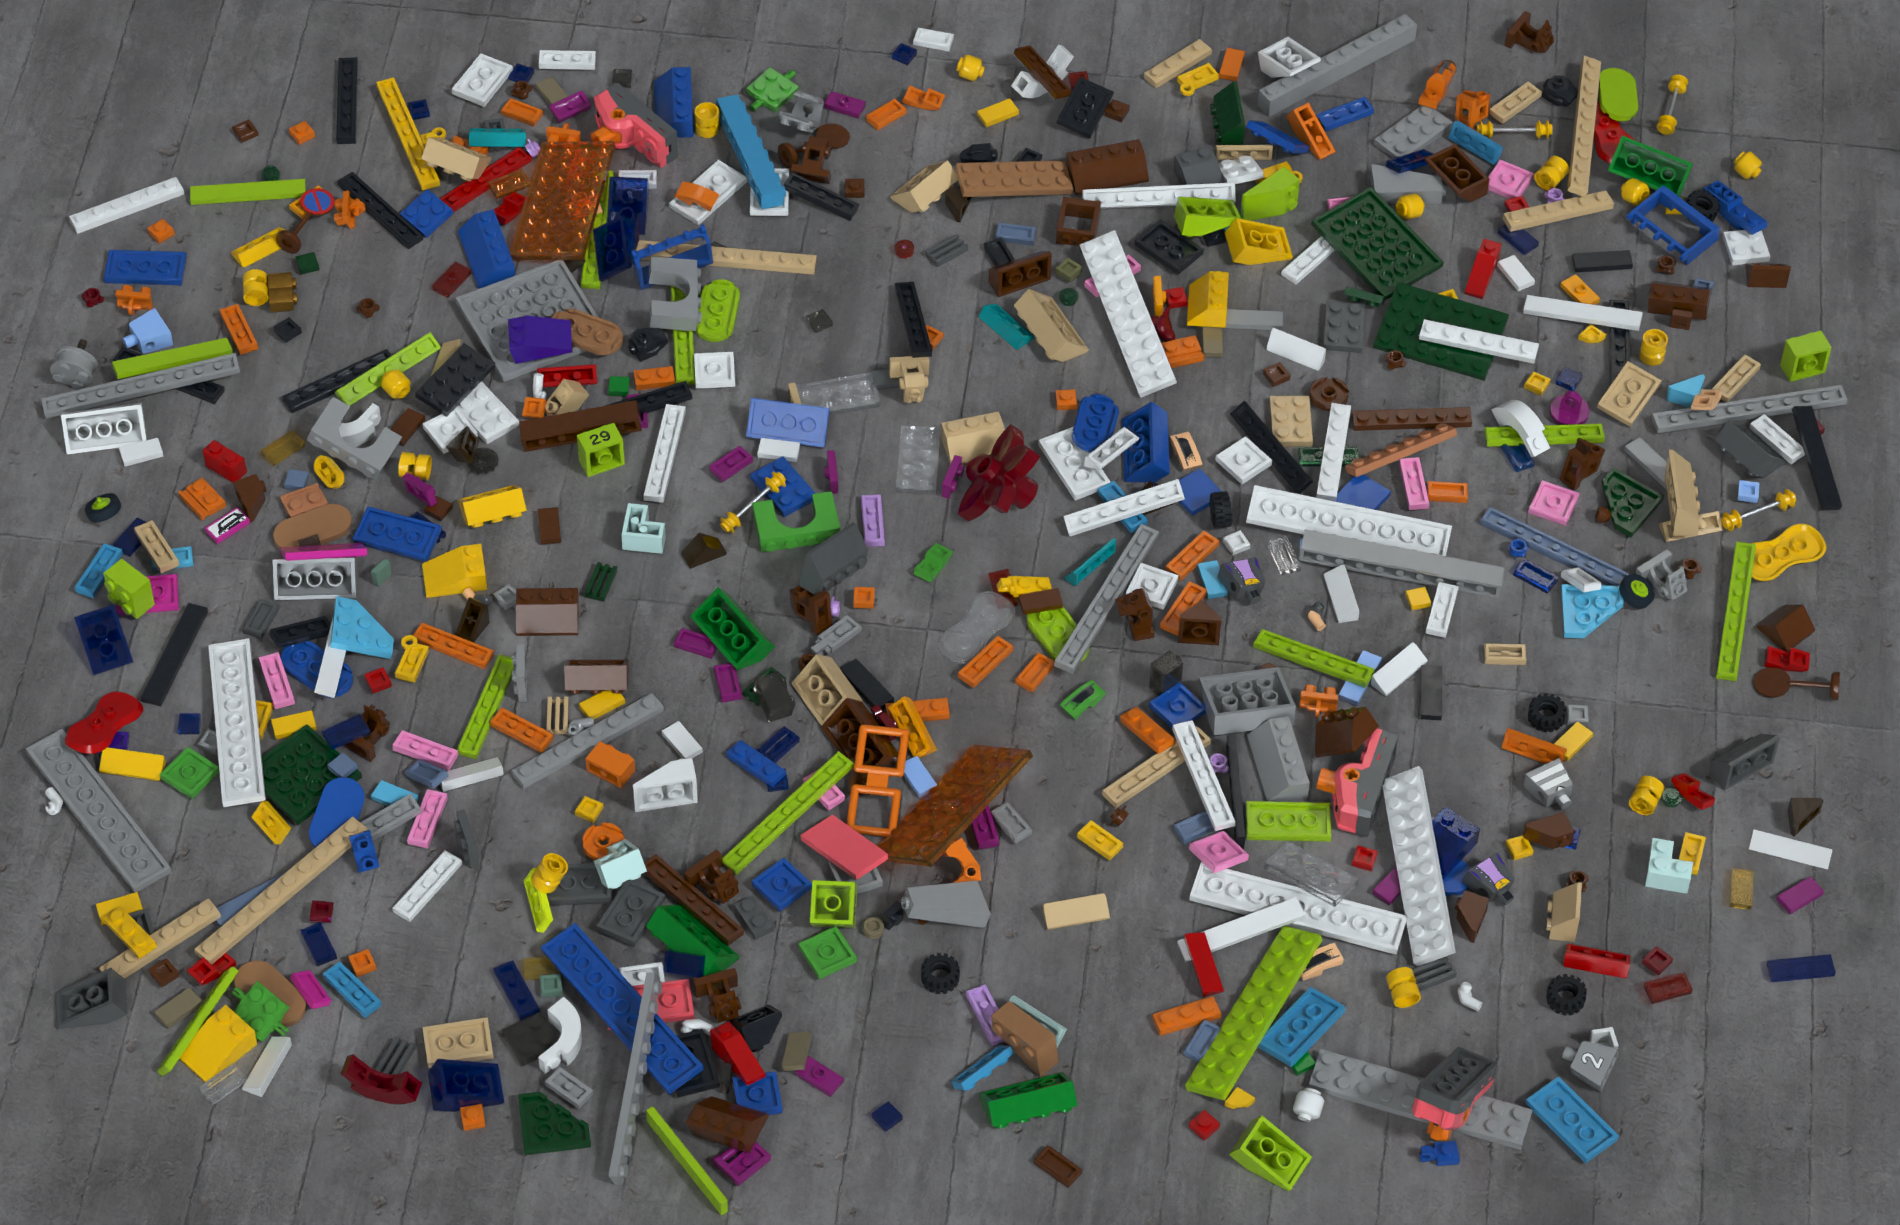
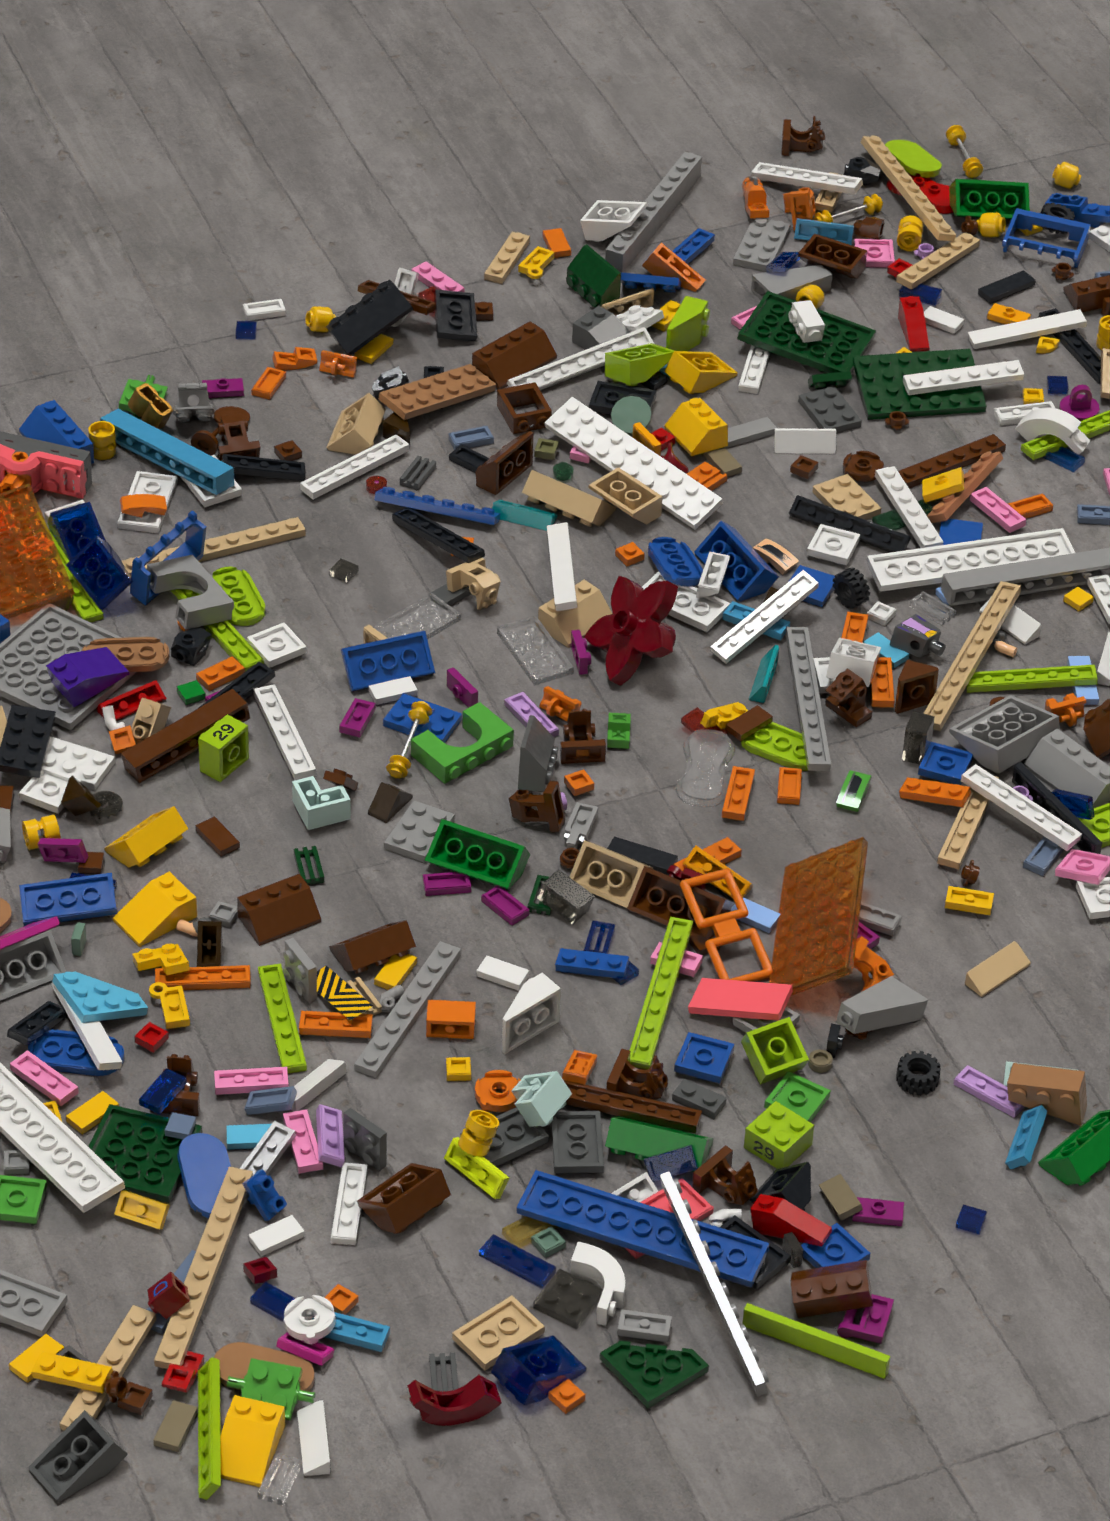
camera: 30 degrees left, 10 degrees down
(150, 958) = (115, 1387): none -> reddish brown plate
(233, 902) = (168, 1295): none -> dark red brick
(328, 977) = (309, 1330): none -> white plate
(355, 888) = (276, 1235): none -> white tile
(434, 617) = (168, 956): none -> yellow plate
(445, 828) = (330, 1135): none -> lavender tile
(466, 900) = (405, 1197): none -> reddish brown slope
(541, 704) = (340, 994): none -> sticker
(672, 517) = (339, 778): none -> reddish brown plate
(678, 849) = (579, 1067): none -> orange plate
(700, 585) = (416, 831): none -> light grey plate
(764, 104) = (149, 406): none -> pearl gold brick
(786, 978) = (778, 1136): none -> lime brick
(897, 224) = (354, 466): none -> white plate
(898, 519) = (558, 704): none -> orange hips
(898, 548) = (580, 746): none -> reddish brown tile
(937, 290) = (443, 507): none -> blue plate
(953, 118) = (338, 364): none -> orange hips
(989, 391) = (561, 566): none -> white tile
(1000, 85) = (369, 317): none -> black slope
(1096, 345) = (629, 495): none -> tan slope
(1100, 65) = (433, 277): none -> bright pink plate
(1163, 263) = (631, 411): none -> sand green tile
(1166, 580) = (855, 656): none -> white slope
(1251, 791) = (1078, 804): none -> clear blue tile
(1273, 615) = (972, 653): none -> tan plate
(1379, 231) = (806, 321): none -> white brick
(1379, 441) = (943, 485): none -> yellow plate
(1499, 81) = (807, 178): none -> white plate
(1501, 393) = (1014, 414): none -> white tile
(1519, 154) = (869, 227): none -> reddish brown rock
(1614, 186) = (969, 226): none -> reddish brown plate

